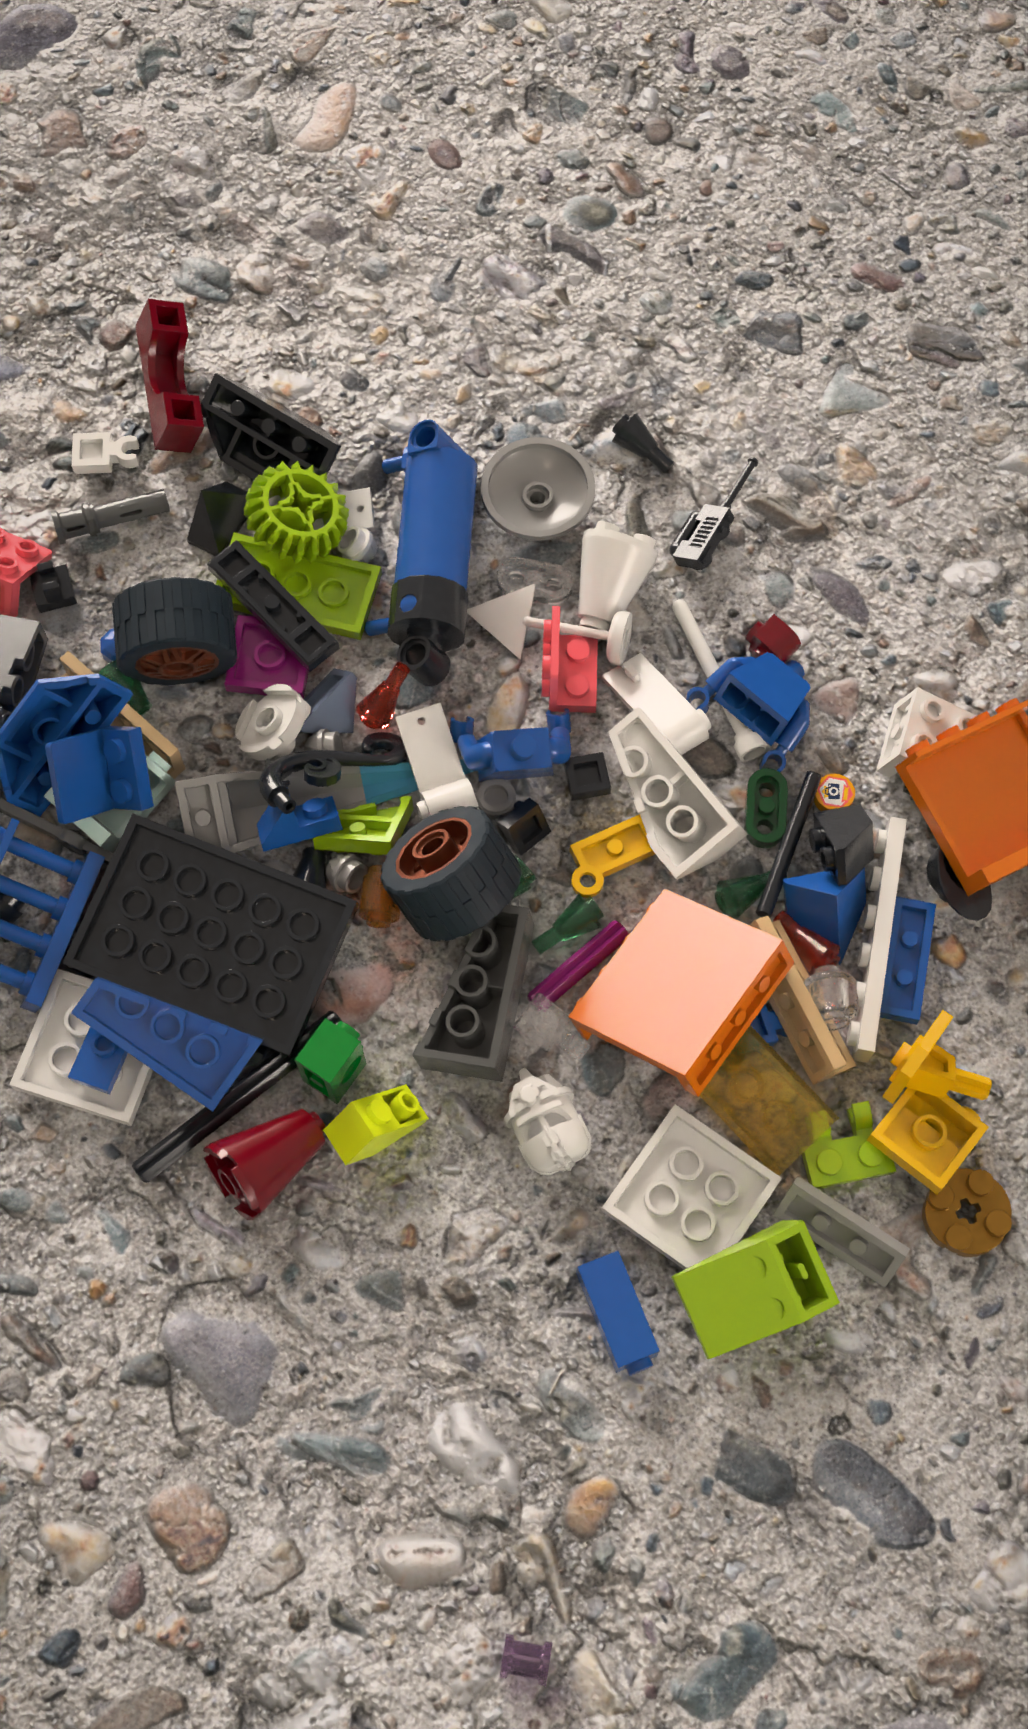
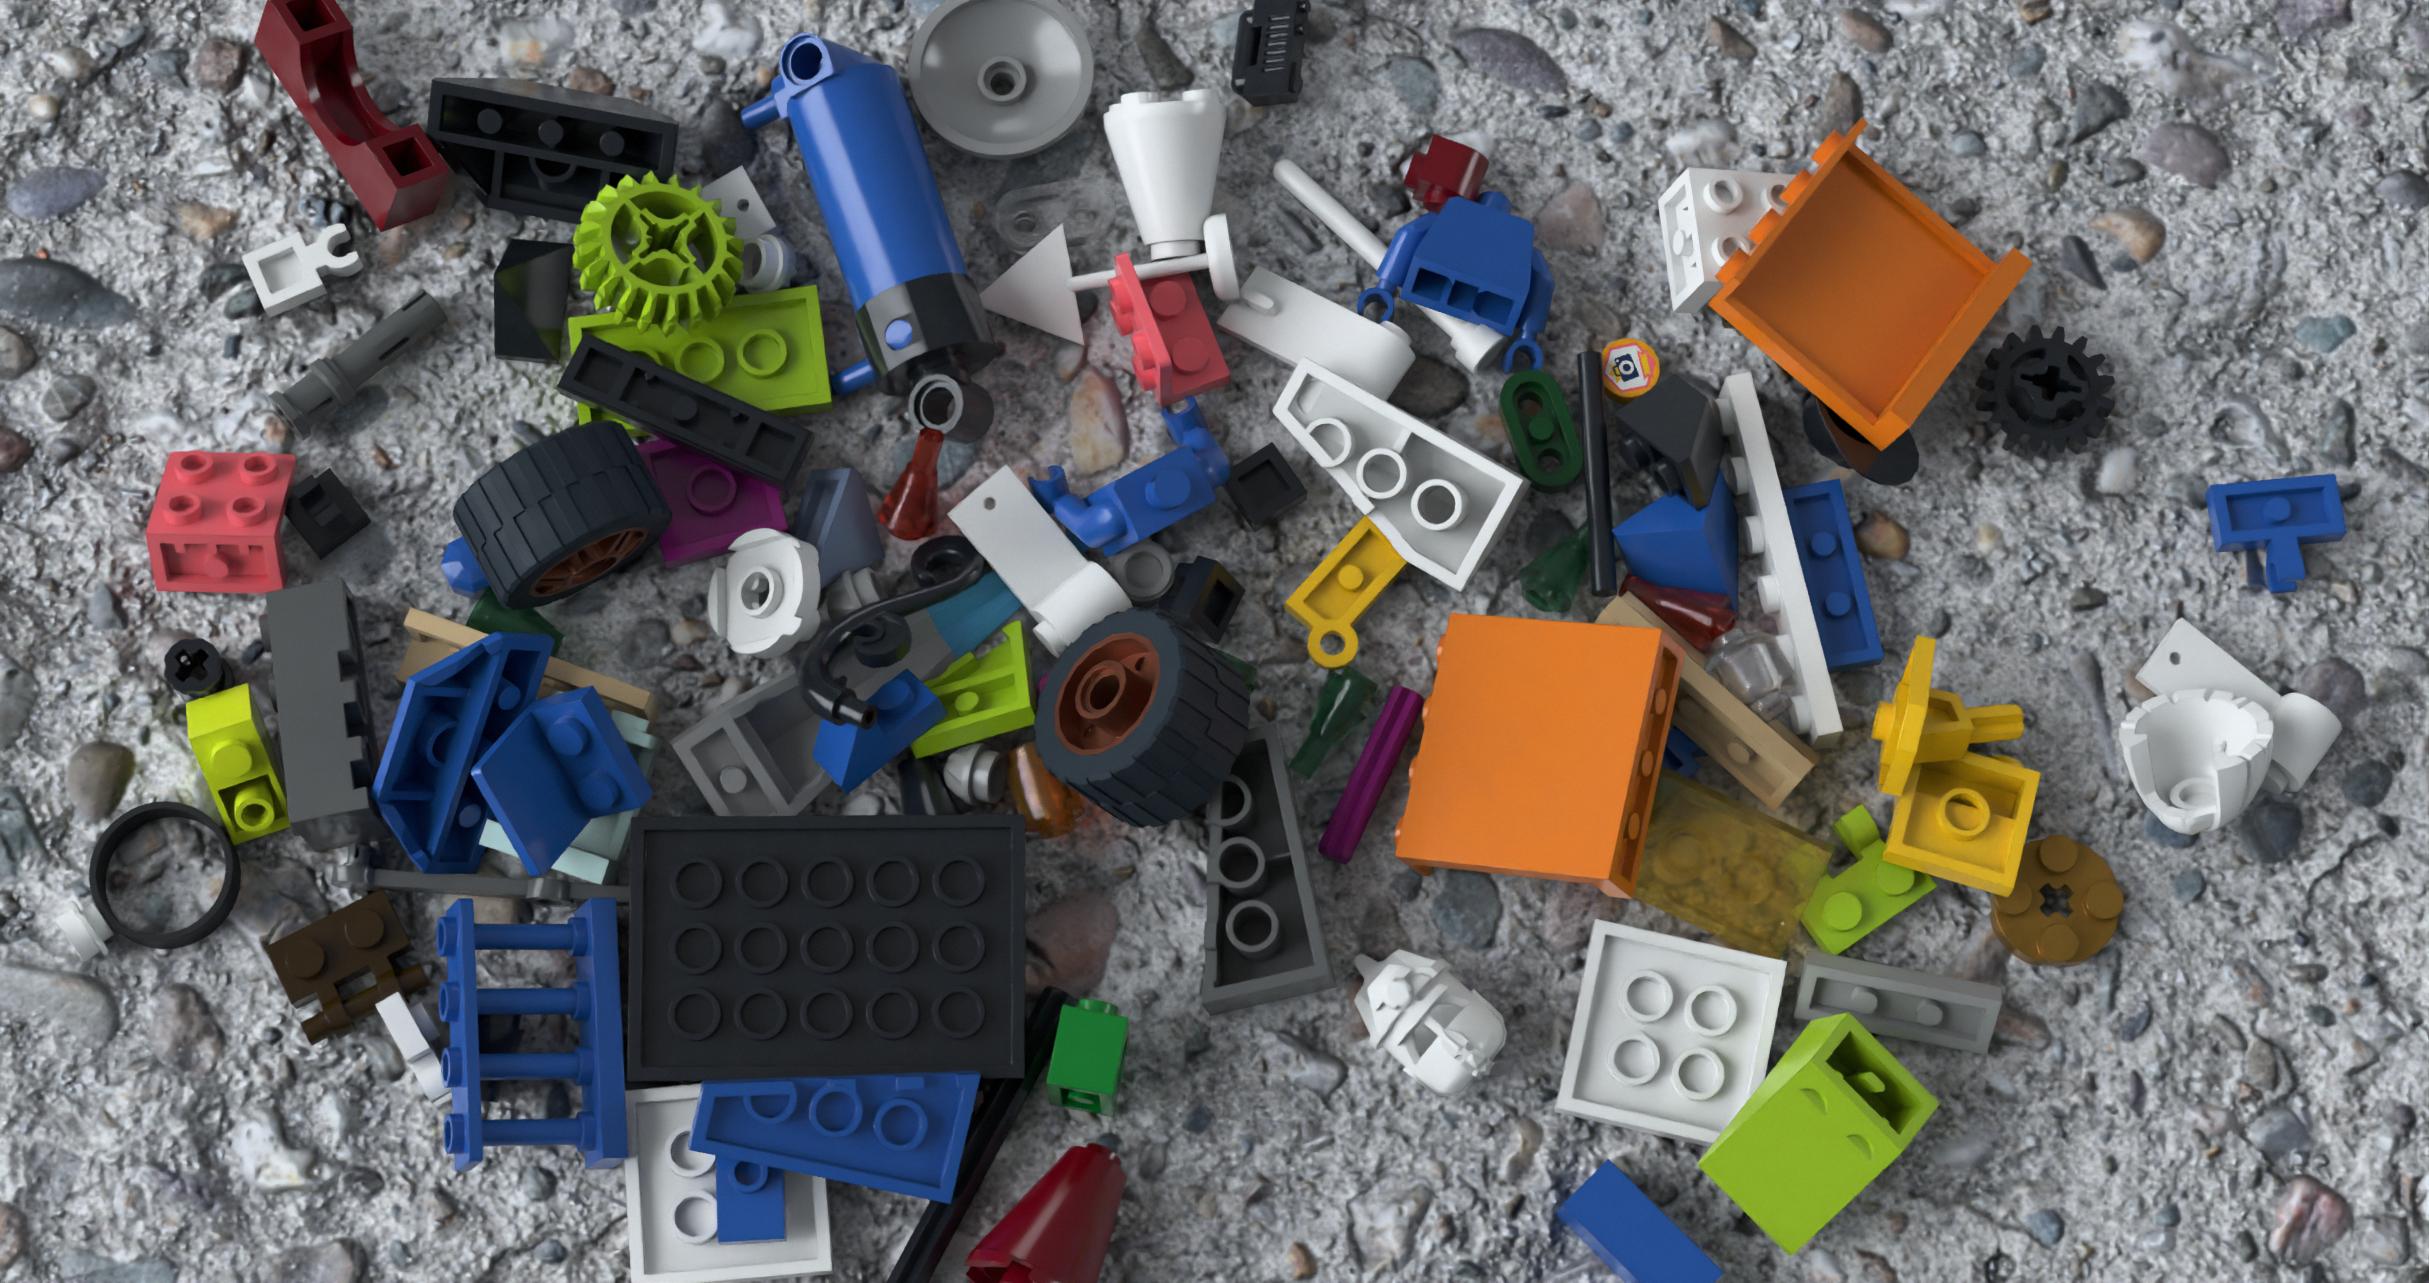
camera: 25 degrees left, 5 degrees up
(374, 1123) = (1186, 1123): neon yellow slope -> none
(546, 1025) = (1367, 882): clear plate -> none

